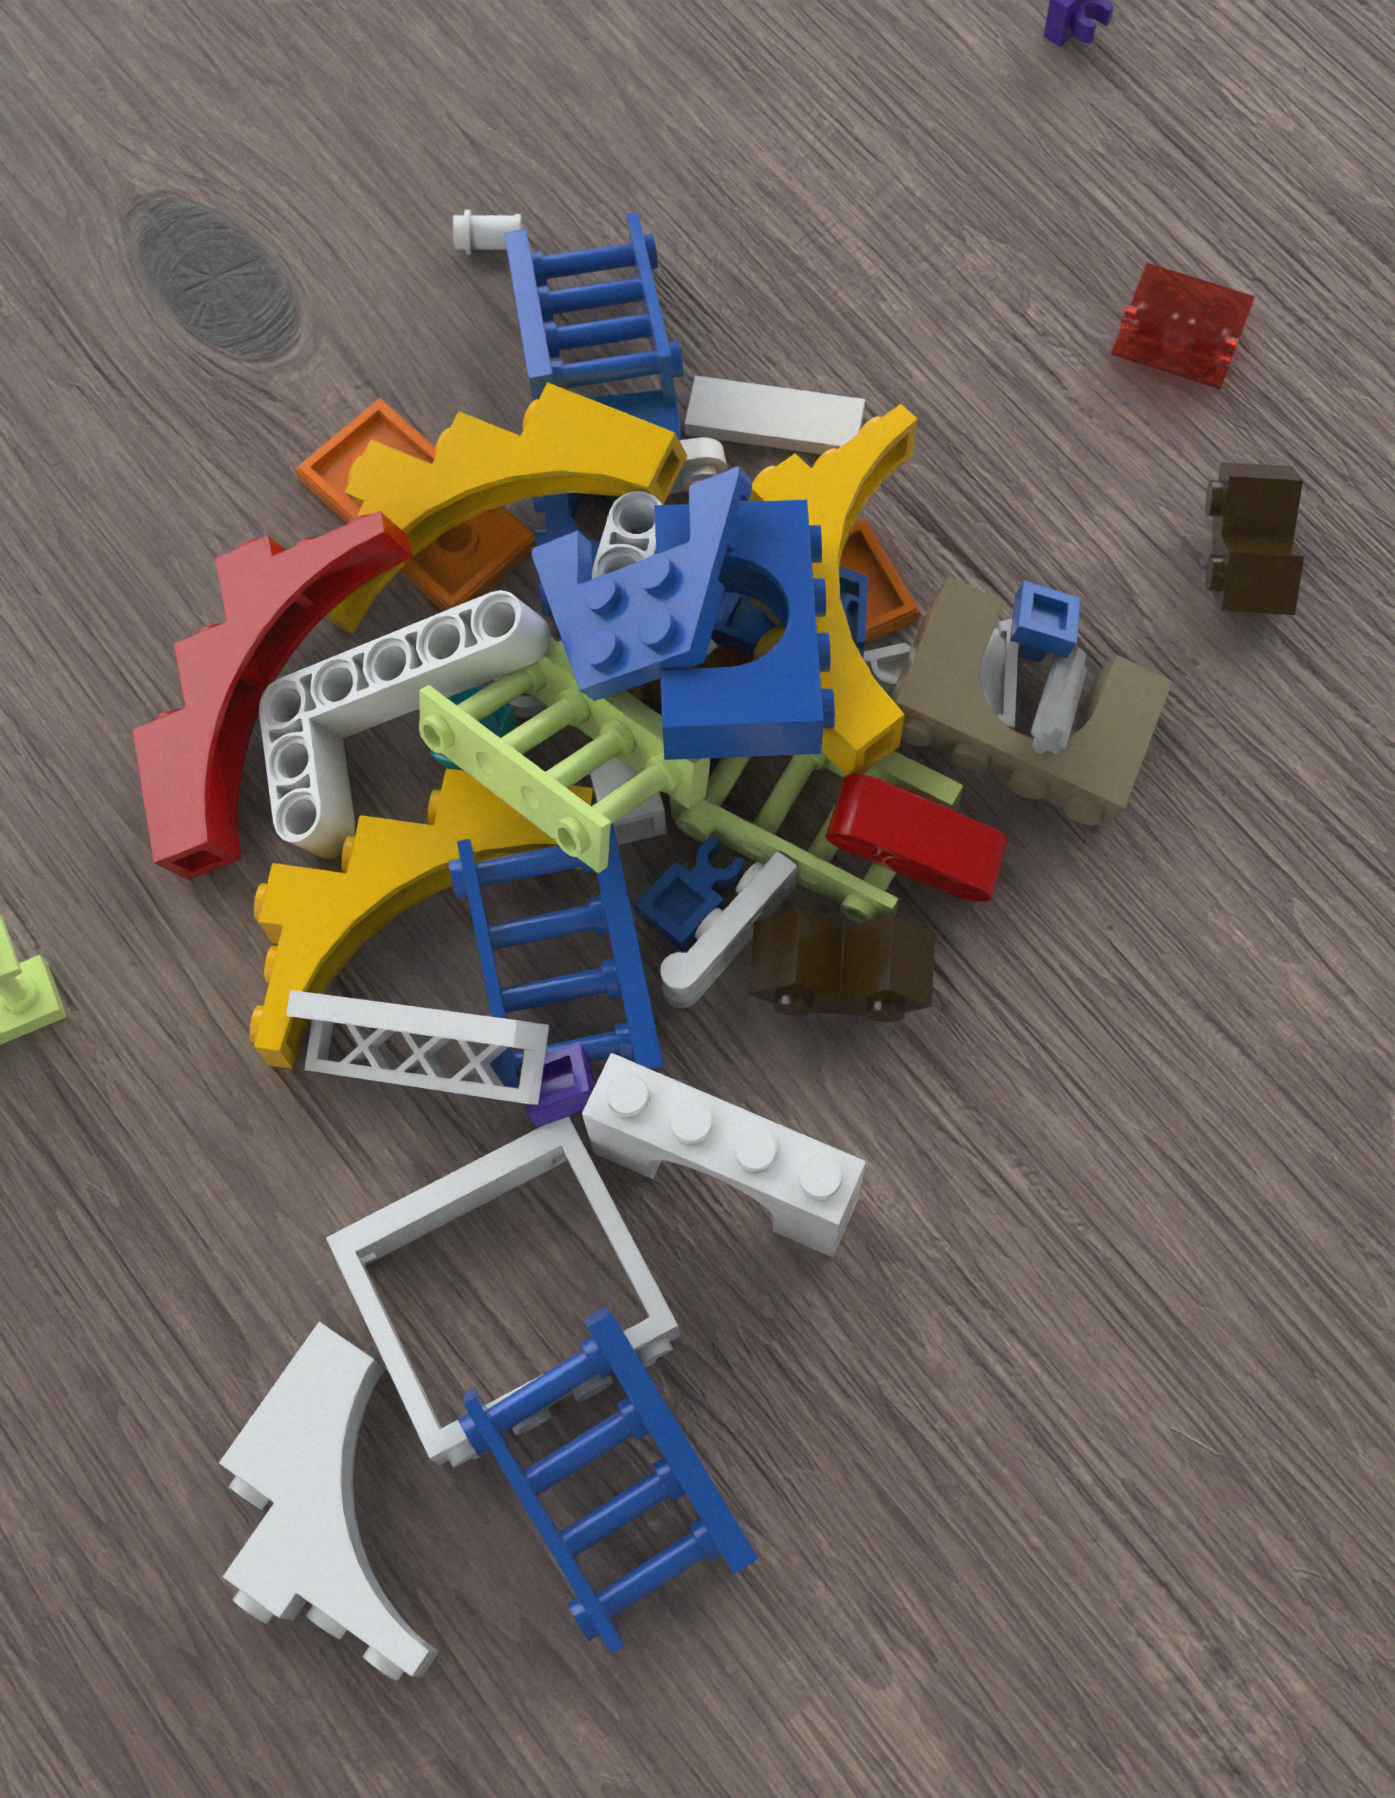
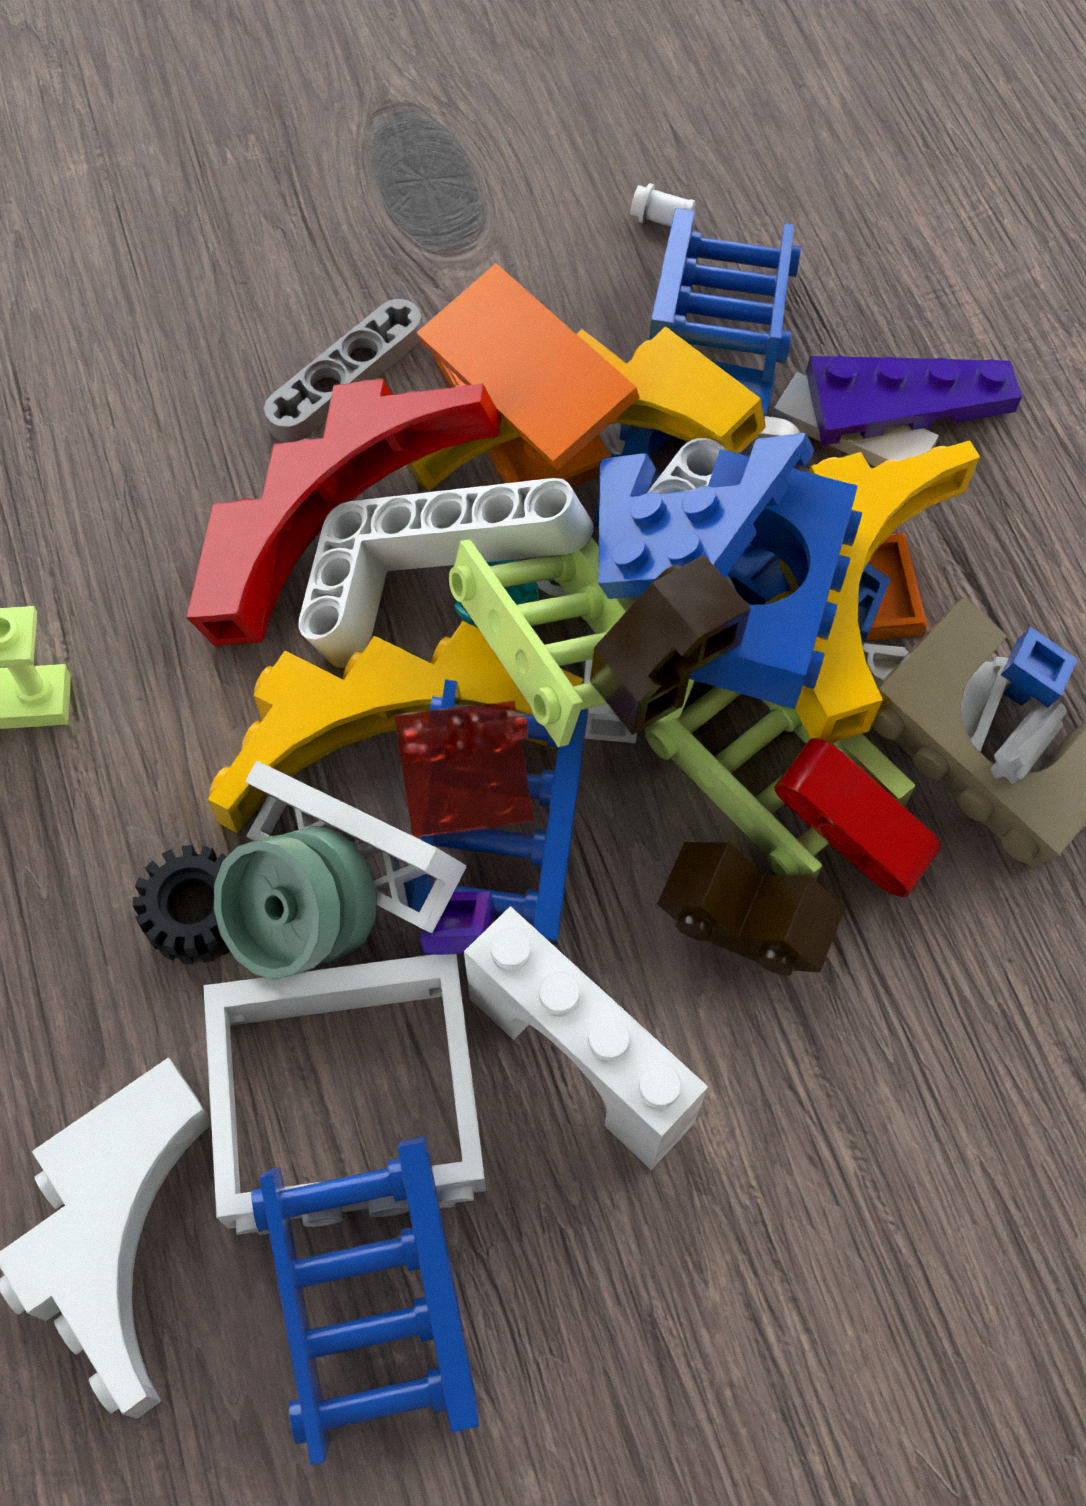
camera: 15 degrees right, 5 degrees down
(201, 525) = (337, 364): none -> light grey beam
(250, 1132) = (156, 899): none -> black tyre
(387, 1121) = (294, 901): none -> sand green wheel
(415, 468) = (531, 364): none -> orange tile
(509, 926) = (464, 768): none -> clear red hinge
(671, 729) = (663, 637): none -> dark brown brick
(685, 897) = (631, 805): blue plate -> none
(728, 931) = (657, 844): white plate -> none
(794, 370) = (892, 391): none -> dark purple wing

